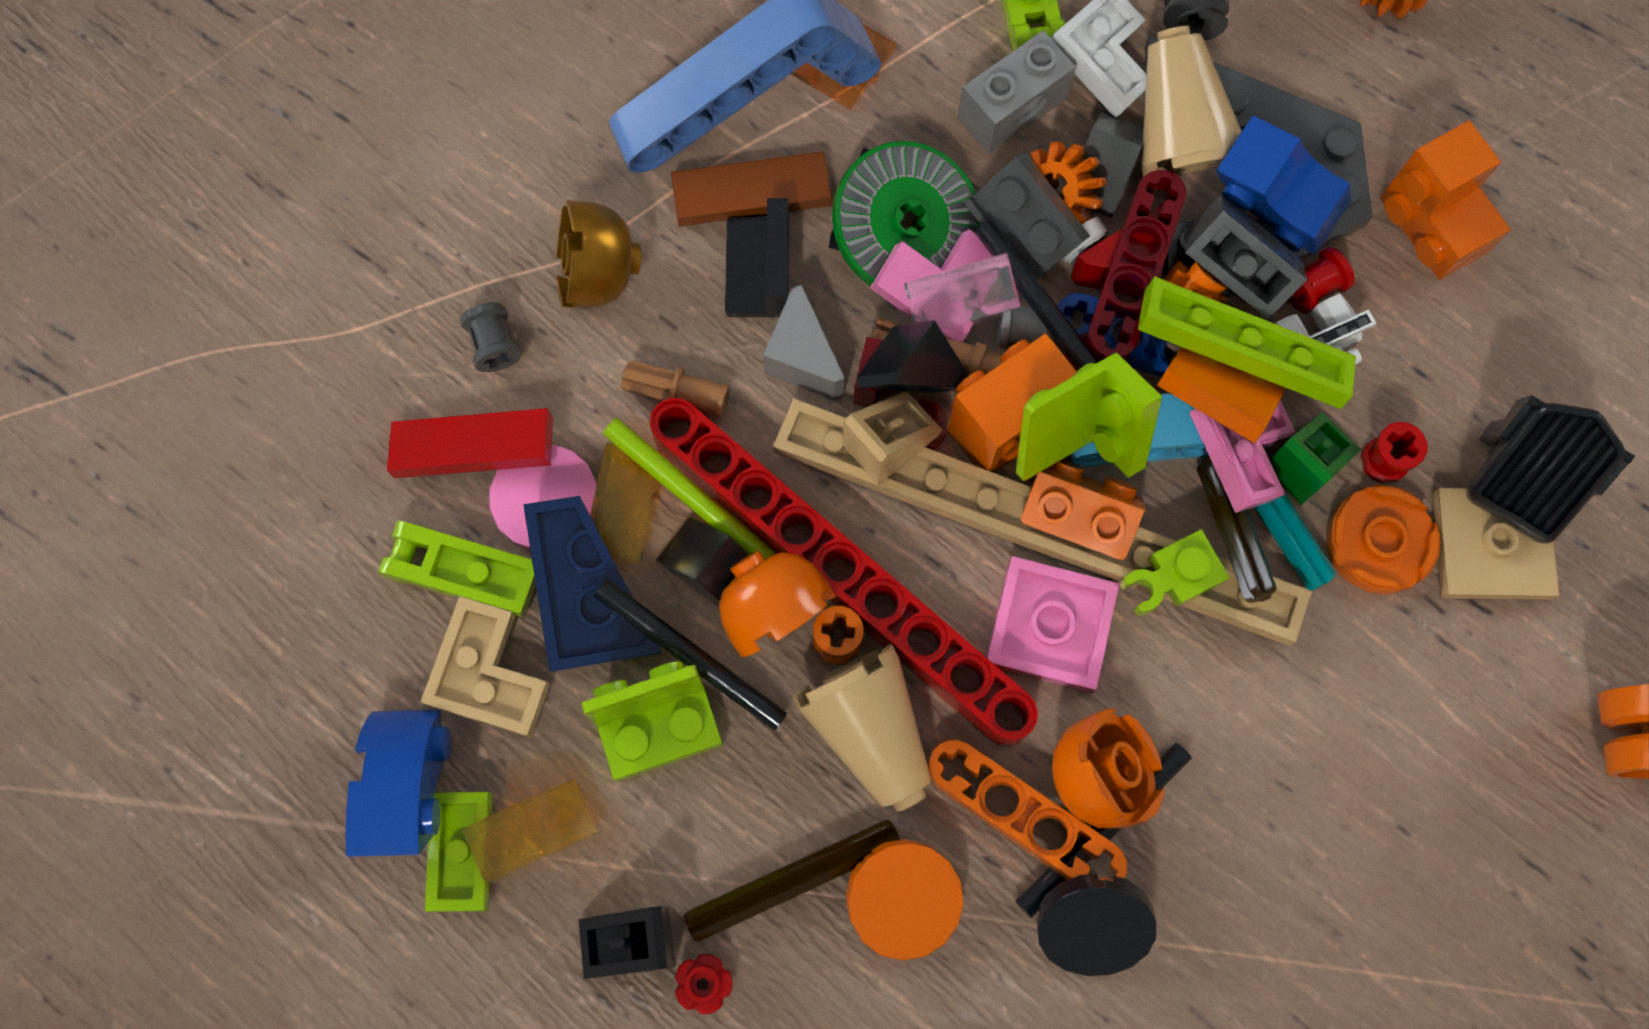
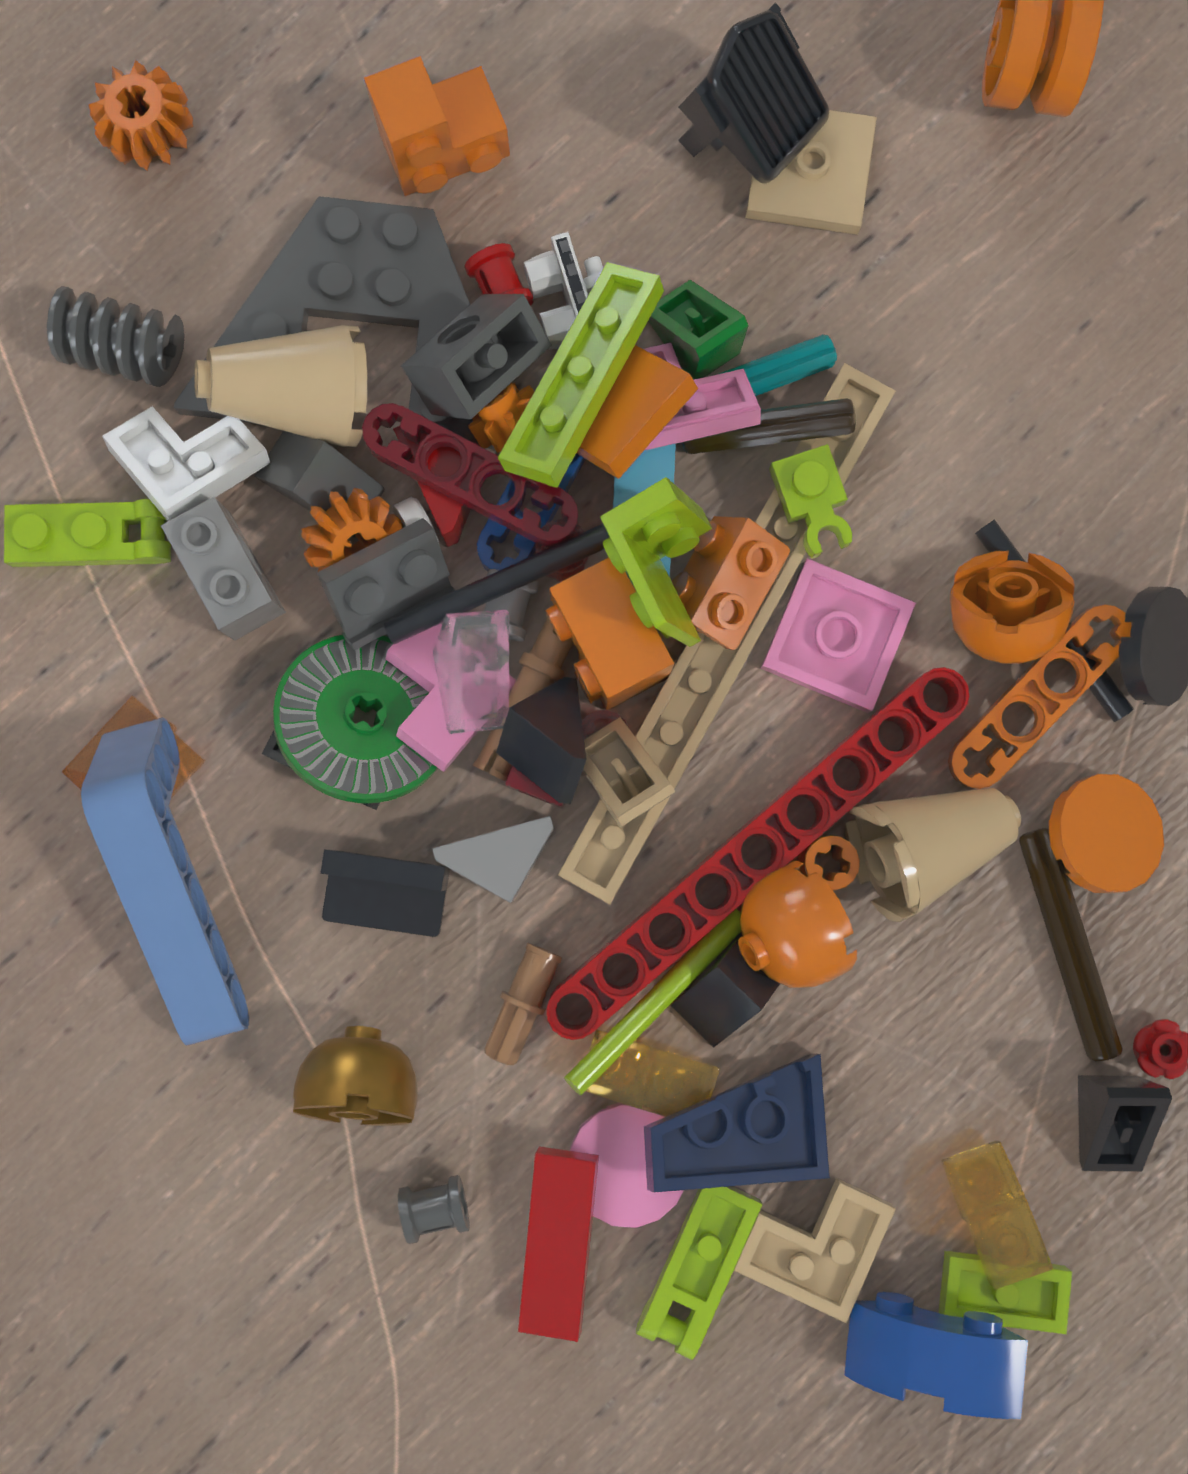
camera: 85 degrees left, 10 degrees up
(653, 720) = (897, 1069): lime bracket -> none
(690, 654) = (828, 1025): black bar -> none
(743, 188) = (291, 889): dark orange tile -> none
(1283, 185) = (399, 297): blue brick -> none
(1382, 540) = (791, 279): orange tile -> none
(1405, 441) = (703, 230): red bush -> none

